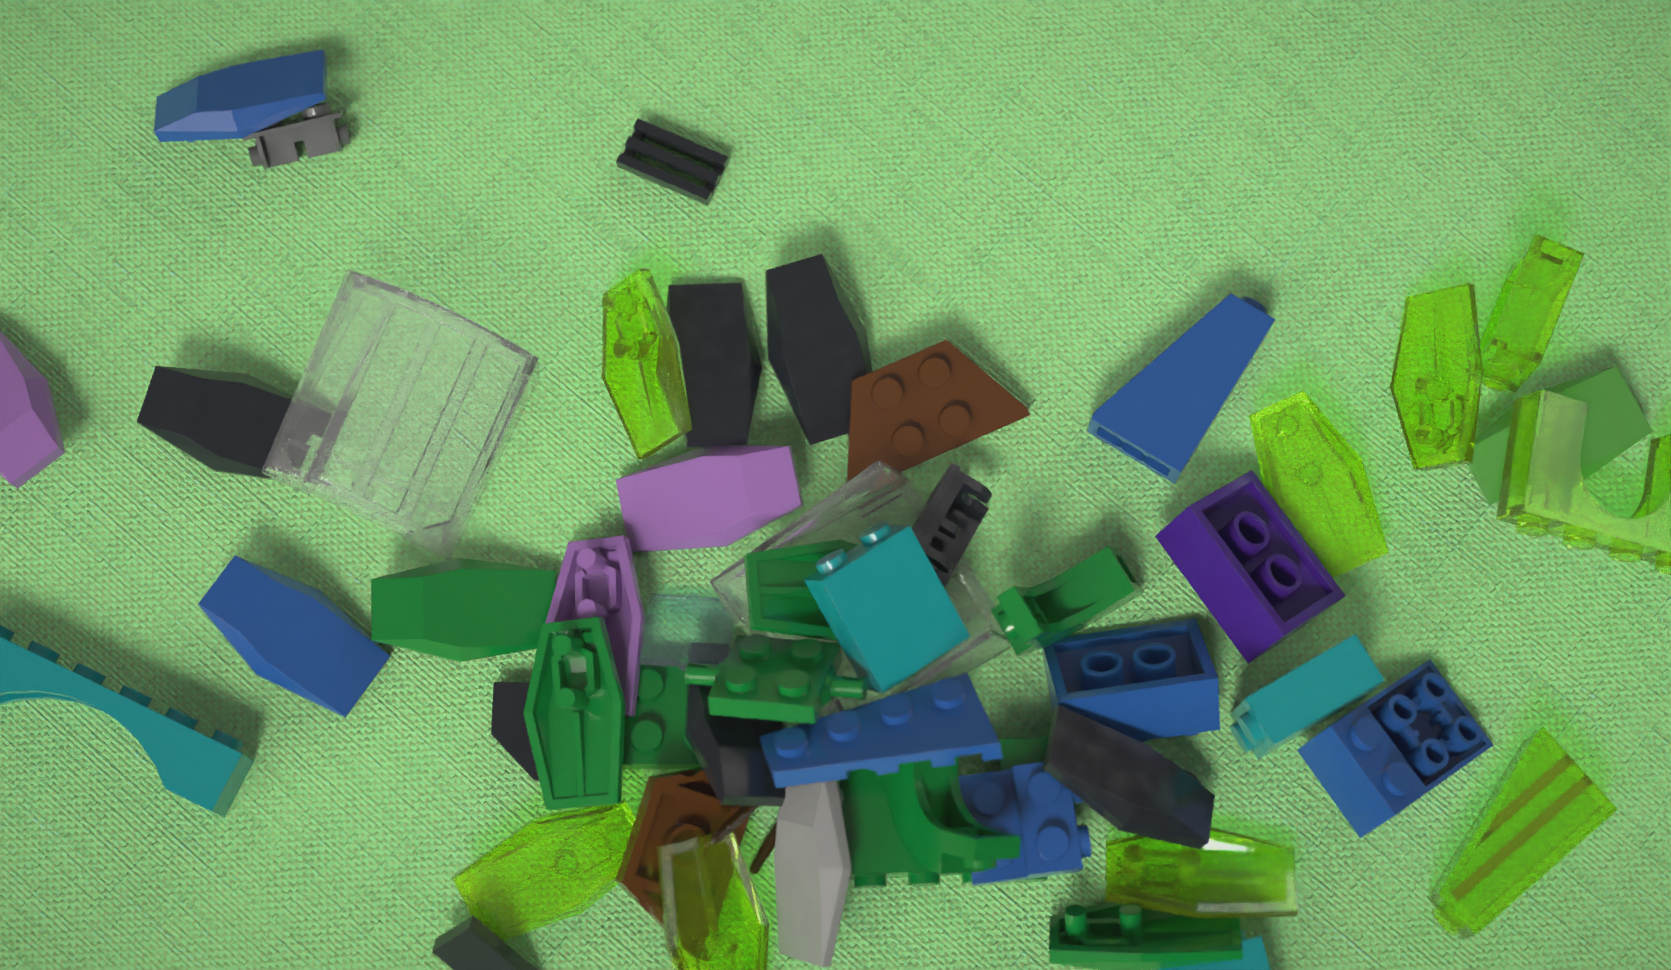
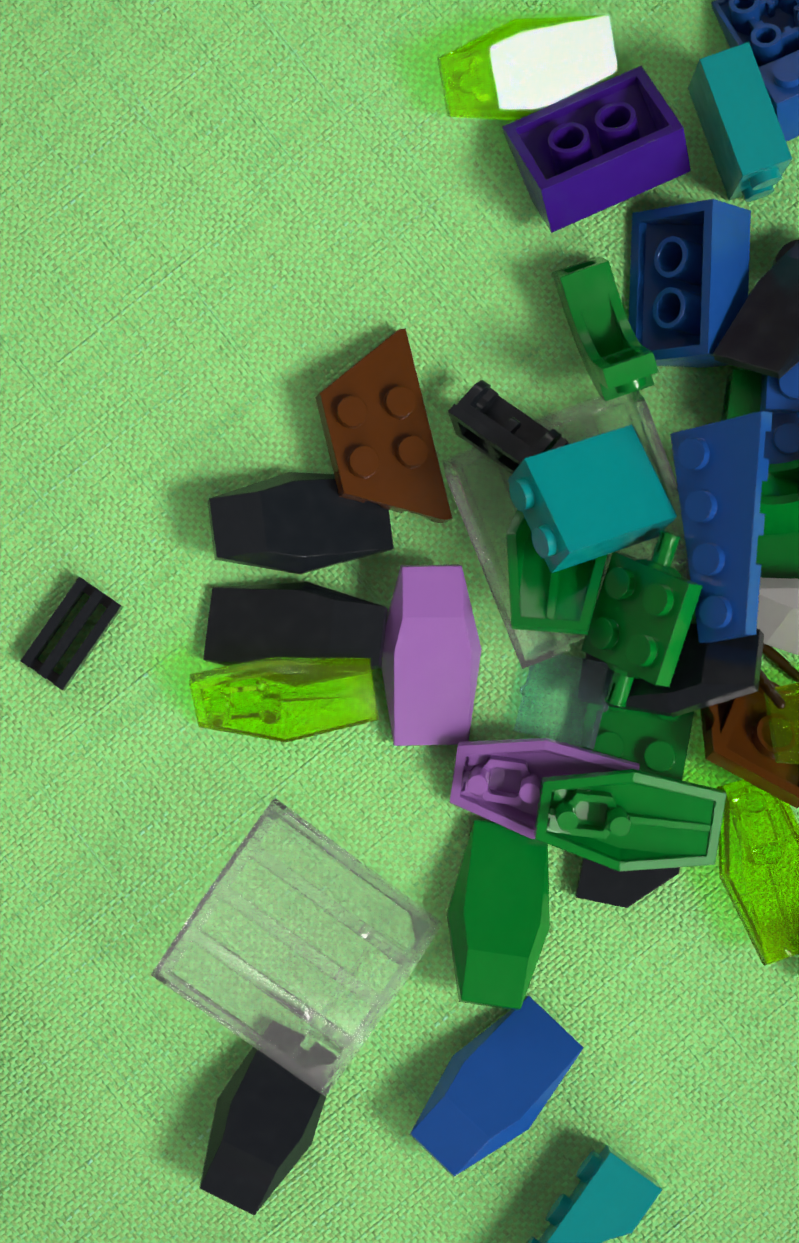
camera: 80 degrees left, 10 degrees up
(1180, 393) = (411, 173): blue slope -> none

